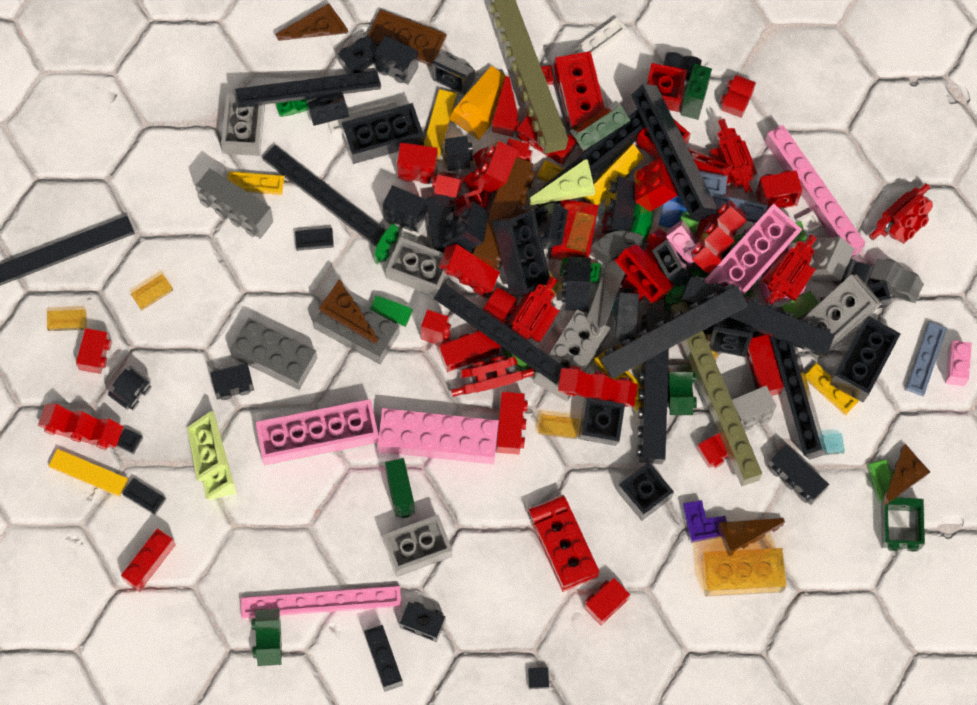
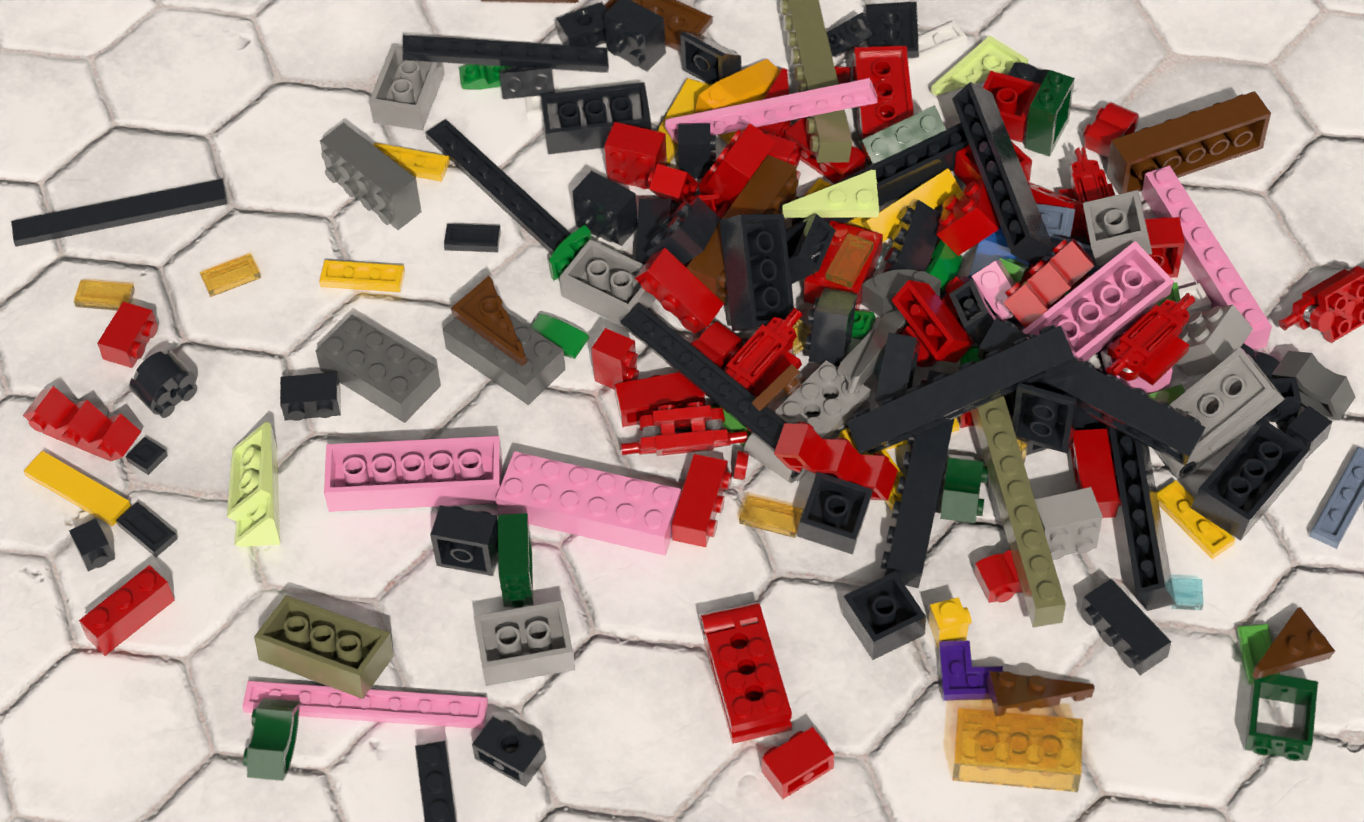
camera: 15 degrees right, 15 degrees down
(111, 515) = (92, 545): none -> black brick
(244, 280) = (362, 276): none -> yellow tile
(287, 569) = (324, 646): none -> olive brick
(364, 477) = (465, 540): none -> black brick
(510, 120) = (780, 108): none -> bright pink tile
(532, 393) = (741, 465): none -> red tile
(547, 40) = (849, 34): none -> black hips
(553, 338) = (785, 384): none -> reddish brown wing
(575, 30) = (894, 26): none -> black tile
(644, 50) = (977, 65): none -> yellowish green wing
(687, 488) = (949, 620): none -> yellow brick
(758, 189) = (1115, 225): none -> light grey brick
(792, 103) = (1189, 142): none -> reddish brown brick
(895, 315) = (1309, 428): none -> black brick

